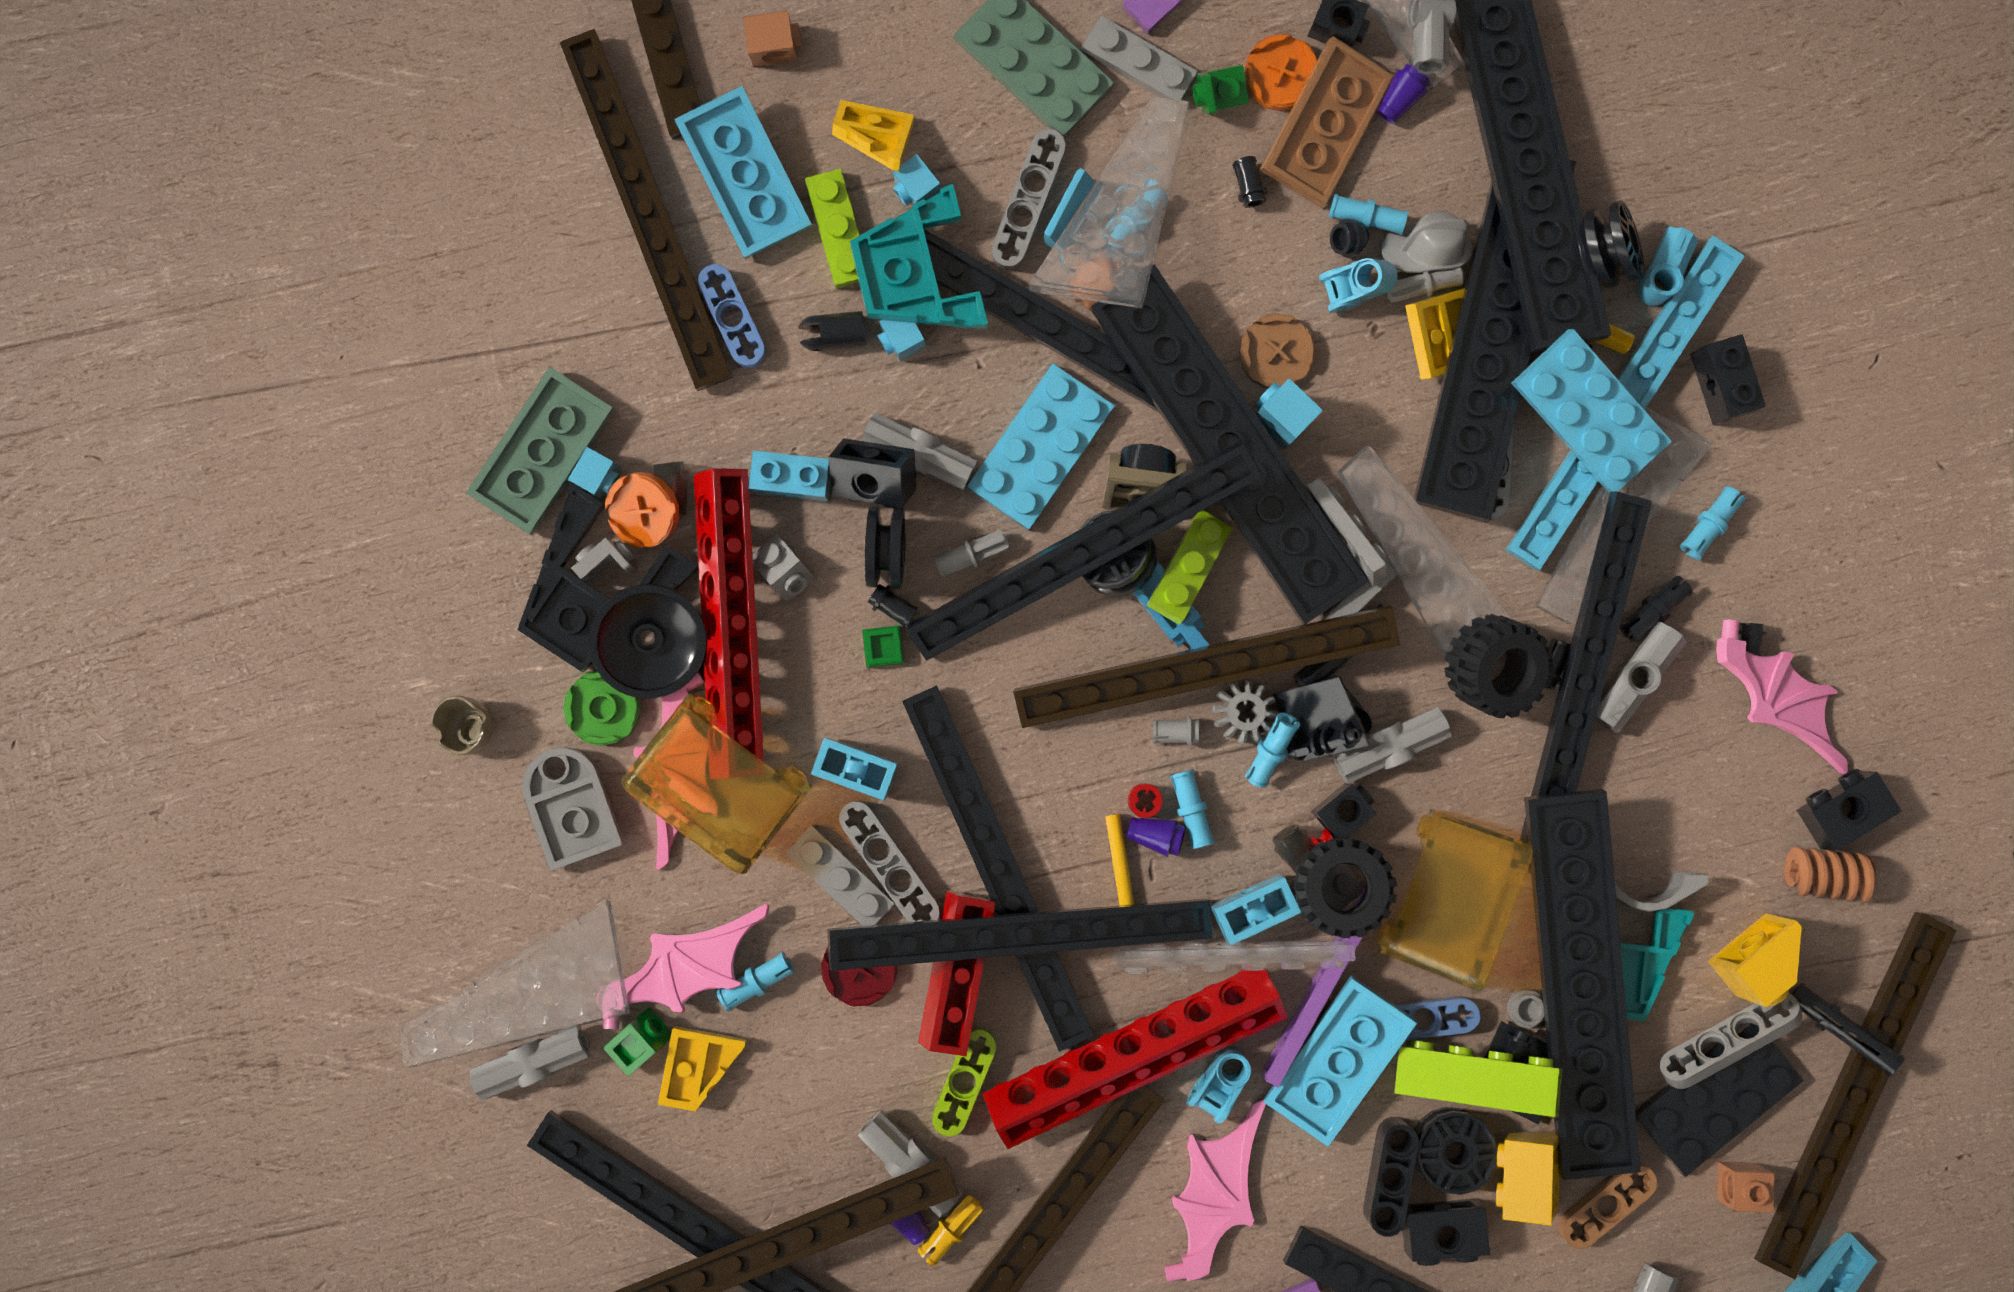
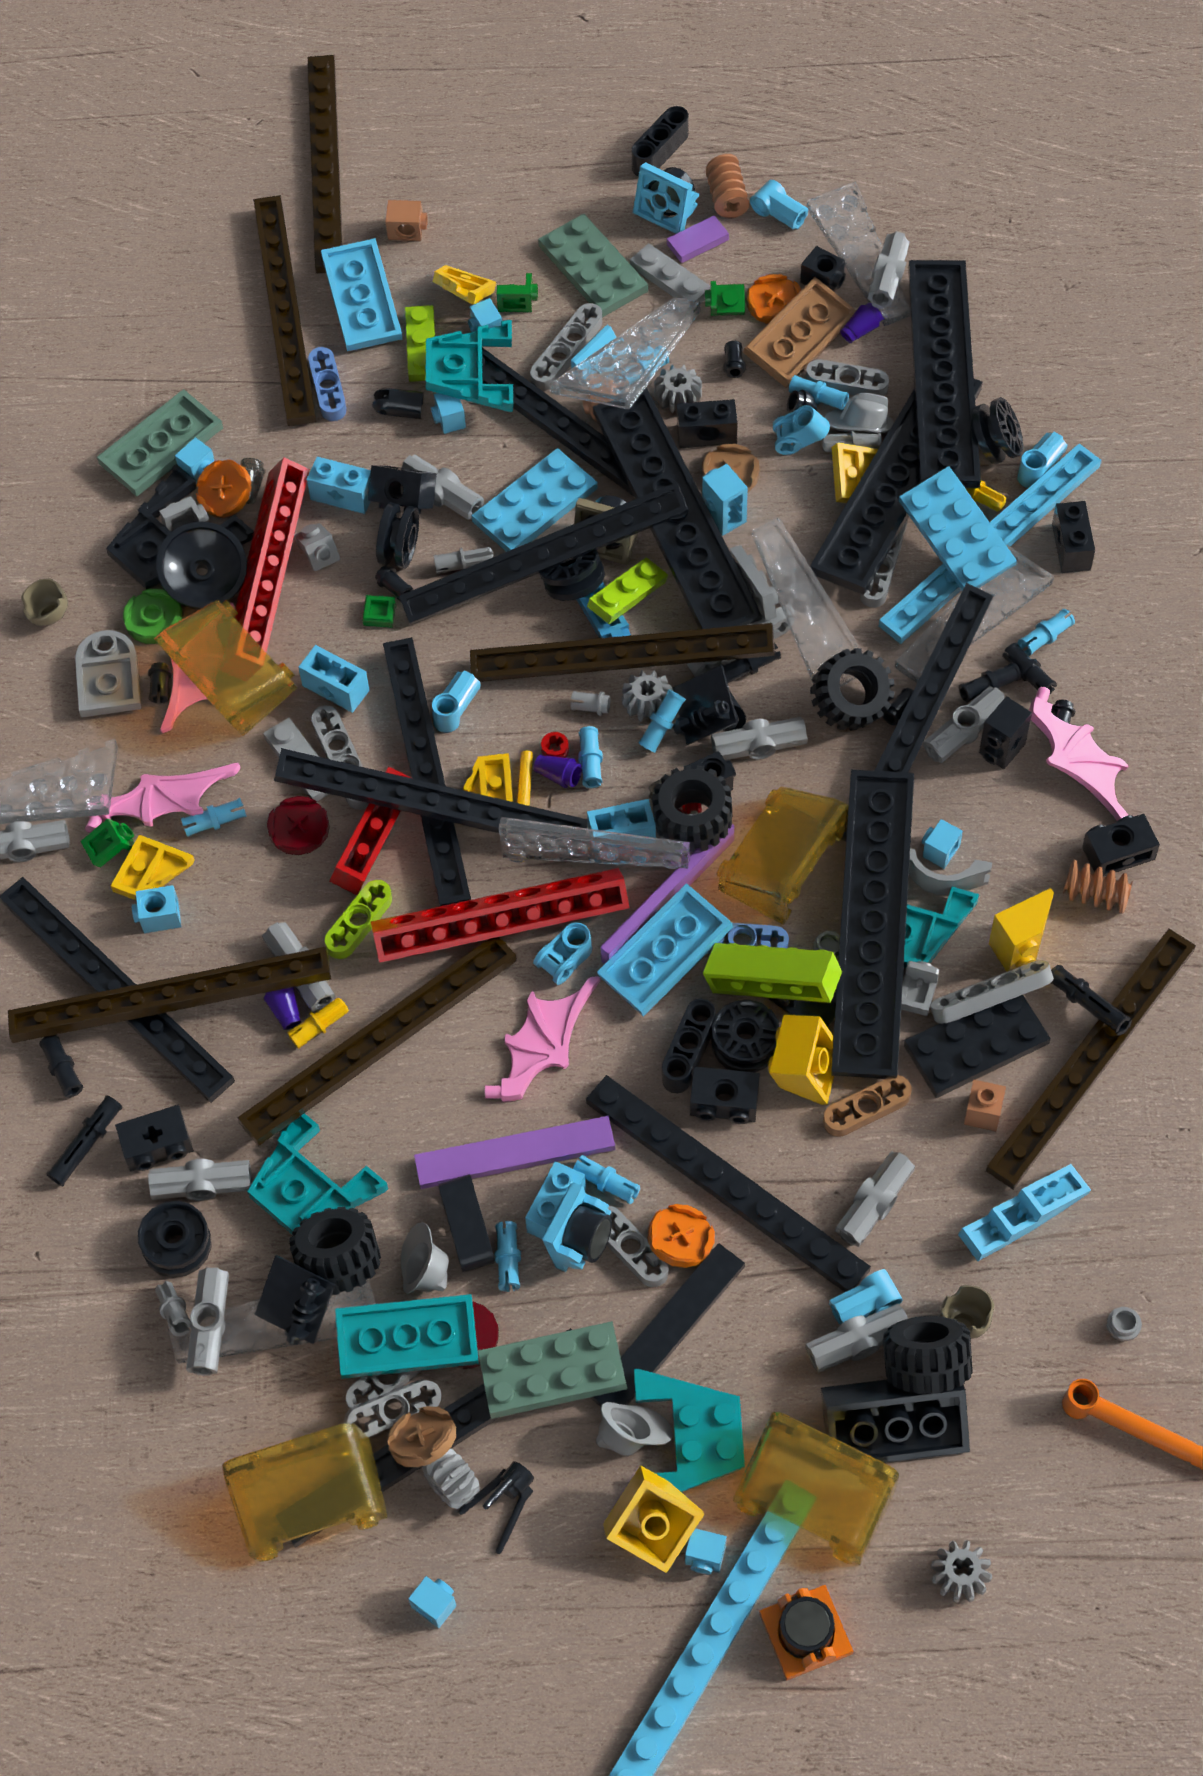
camera: 15 degrees right, 25 degrees down
(634, 808) = (159, 680): none -> black pin
(736, 1113) = (166, 918): none -> medium azure brick
(947, 138) = (517, 297): none -> green bracket
(1011, 759) = (454, 700): none -> medium azure piece
(1078, 874) = (491, 777): none -> yellow wing
(1193, 230) = (677, 387): none -> light grey gear
(1237, 293) = (707, 423): none -> black brick
(1387, 195) = (839, 369): none -> light grey beam
(1637, 848) = (941, 843): none -> medium azure plate
(1647, 1048) = (919, 987): none -> light grey bracket
(1694, 692) = (1005, 733): none -> black brick
(1701, 581) = (1029, 668): none -> black pin

